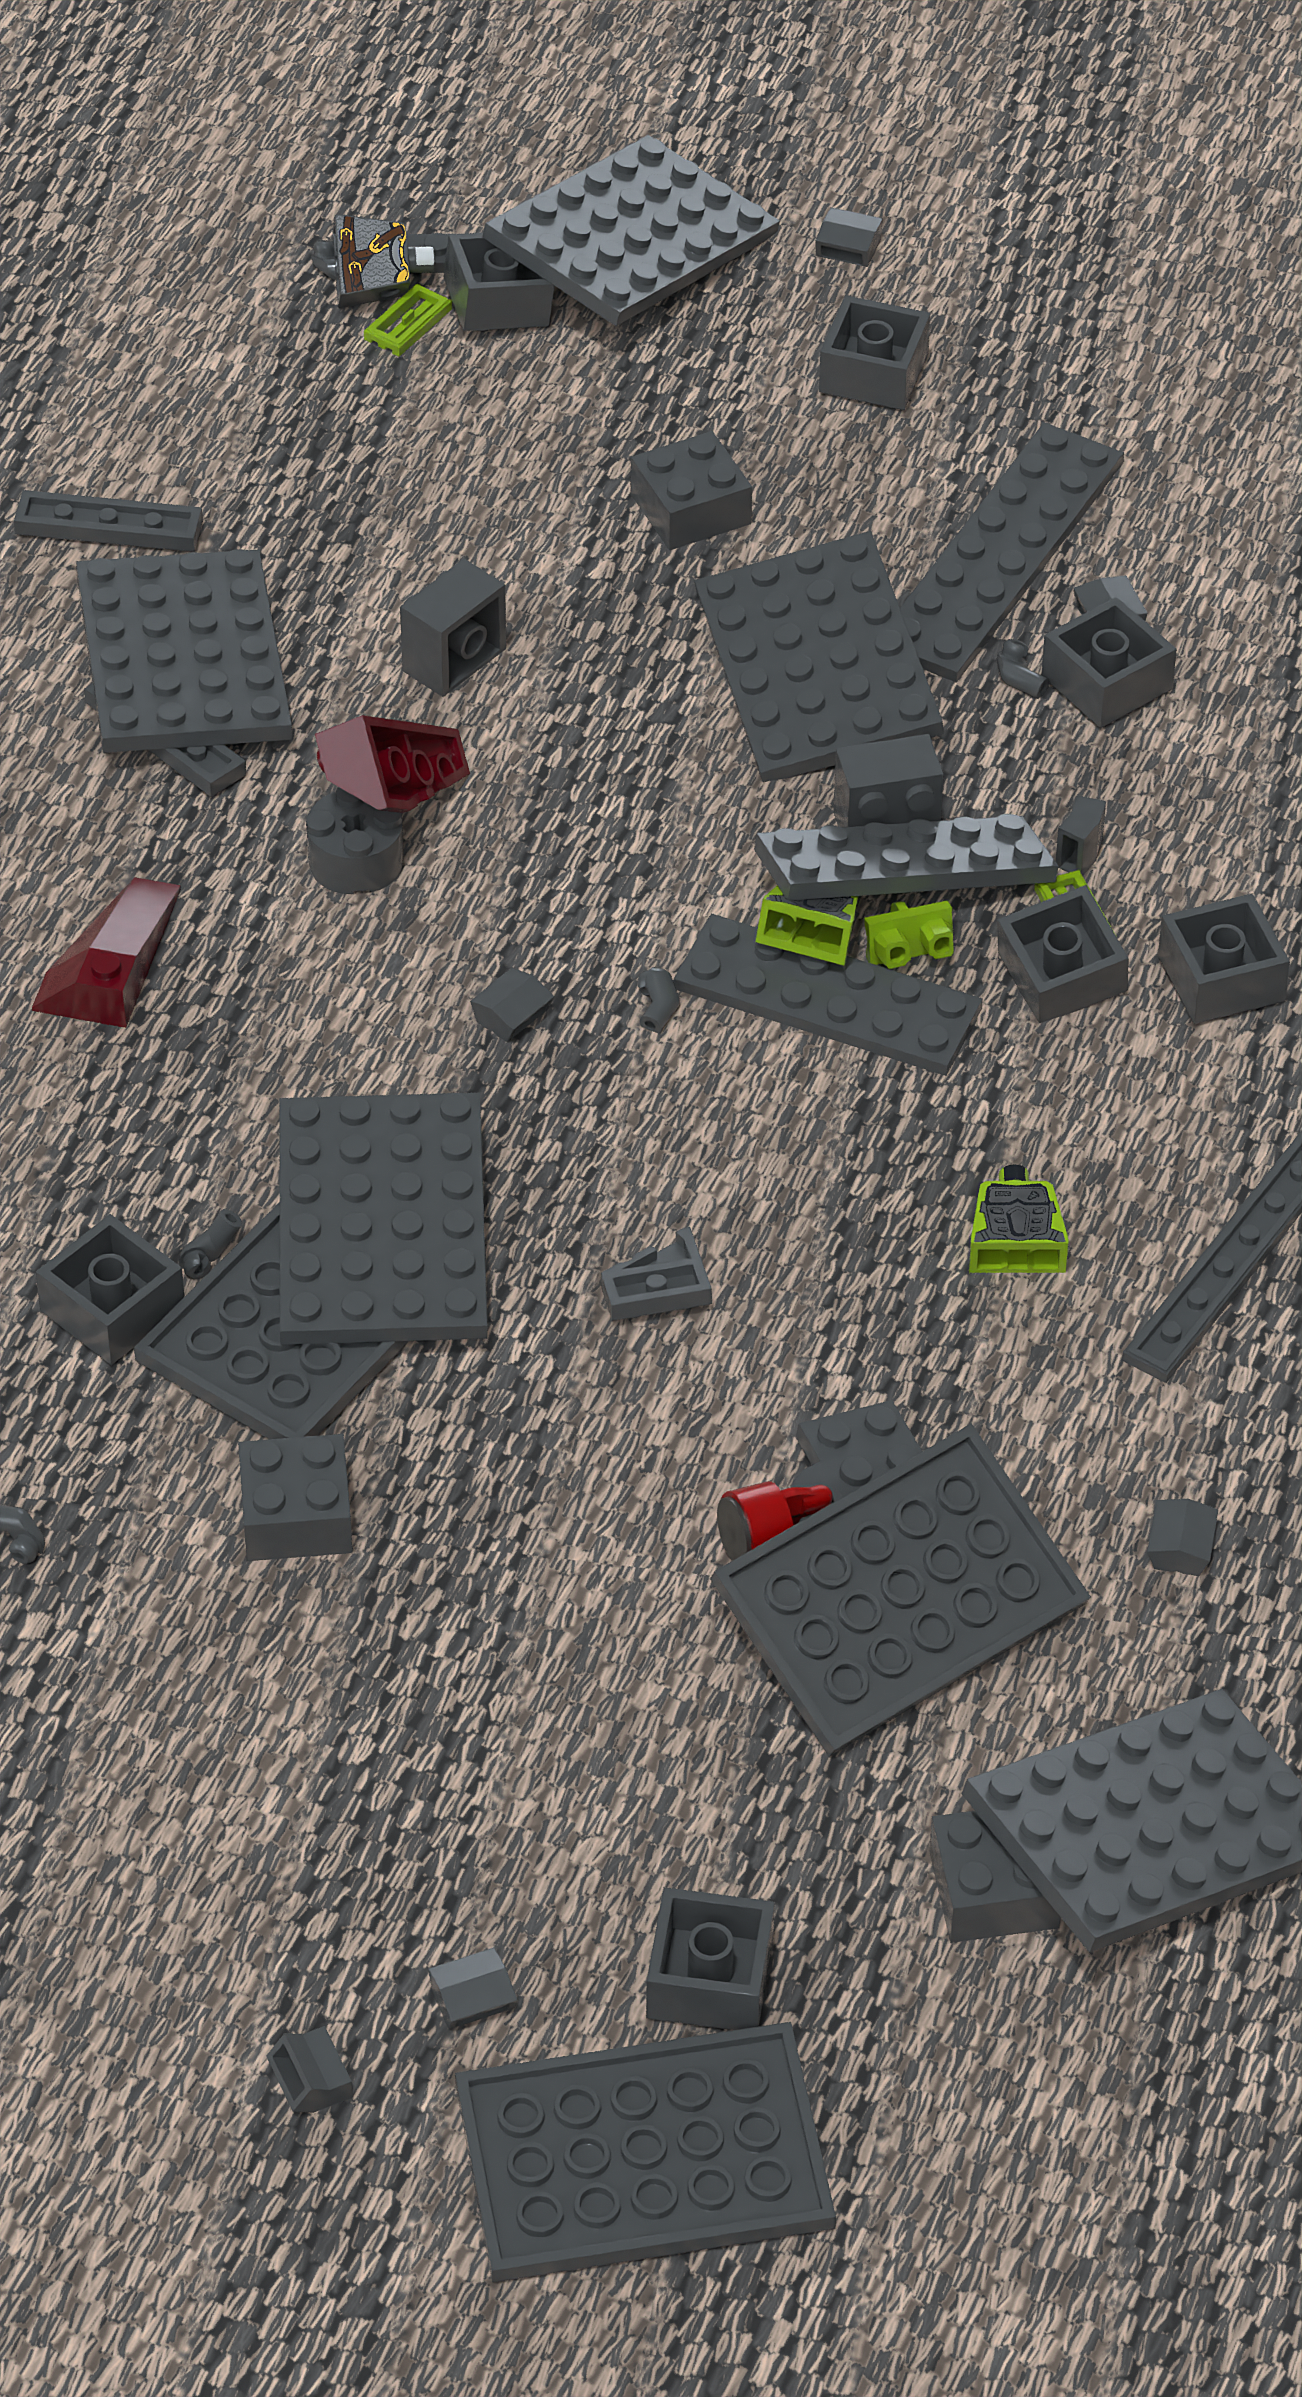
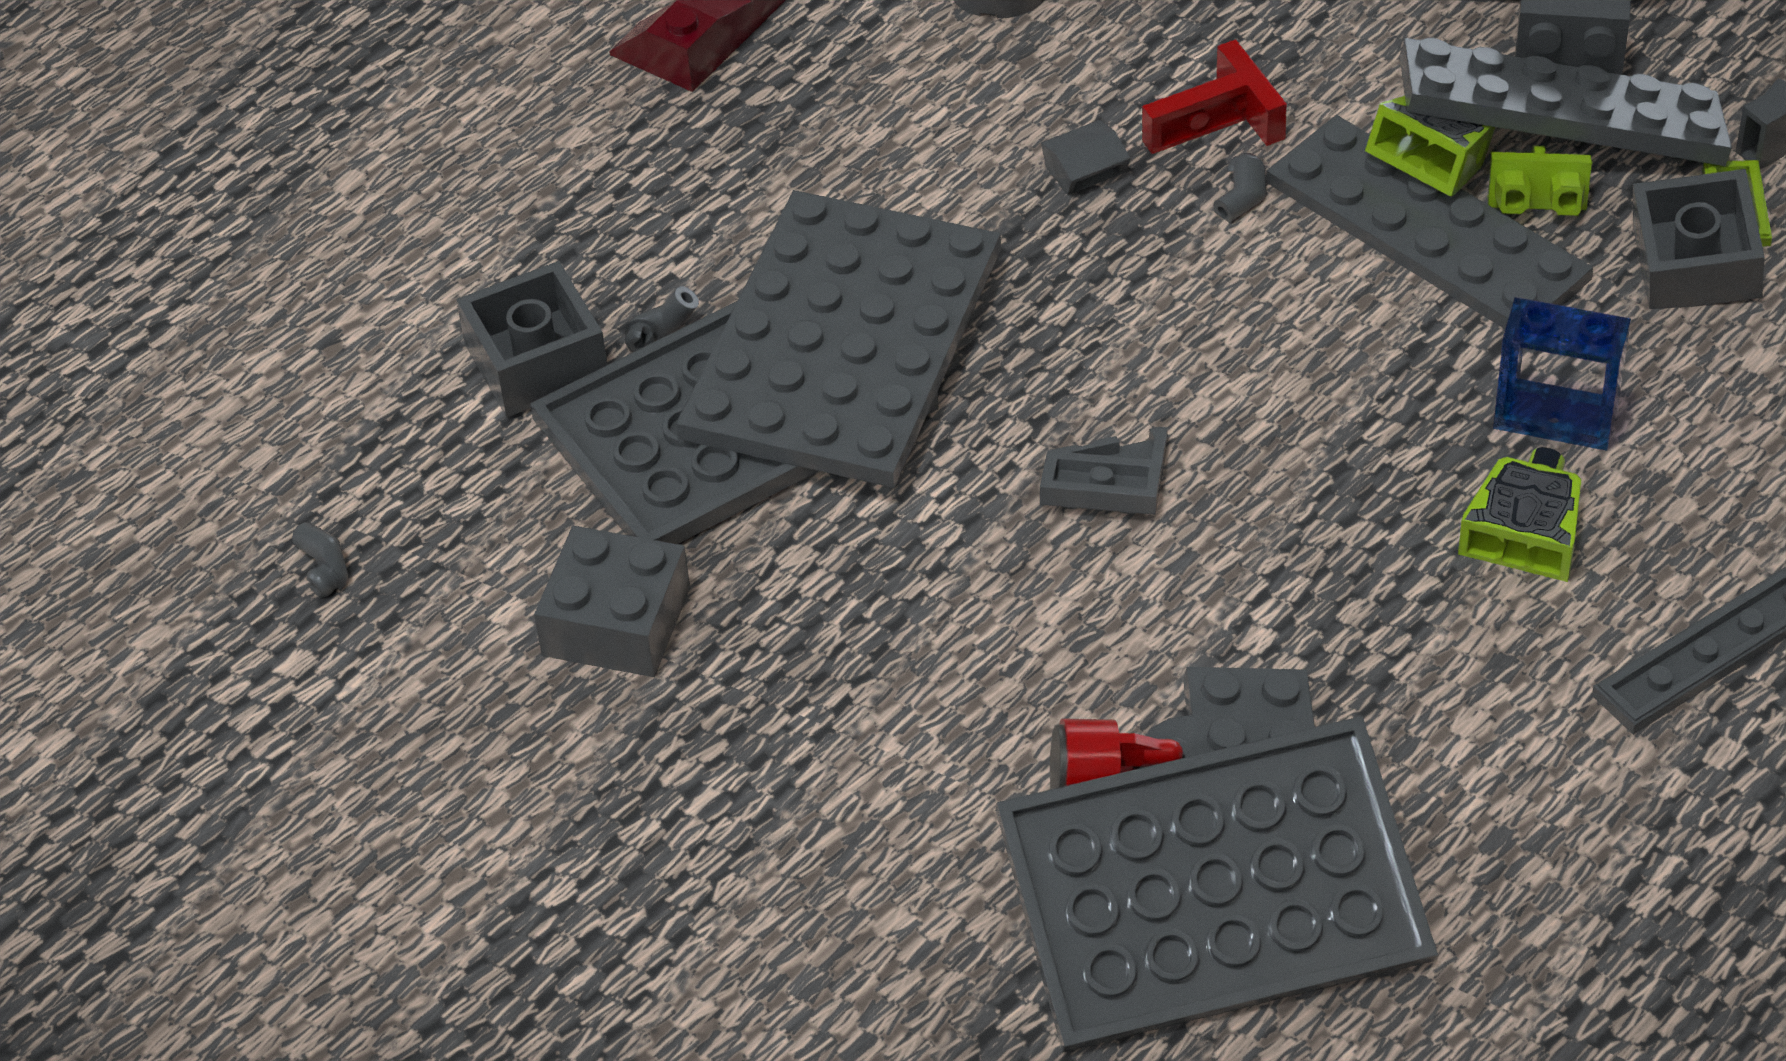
camera: 25 degrees right, 0 degrees up
(617, 915) = (1234, 96): none -> red bracket
(1027, 1129) = (1527, 405): none -> clear blue window
(1182, 1536) = (1574, 913): dark grey piece -> none

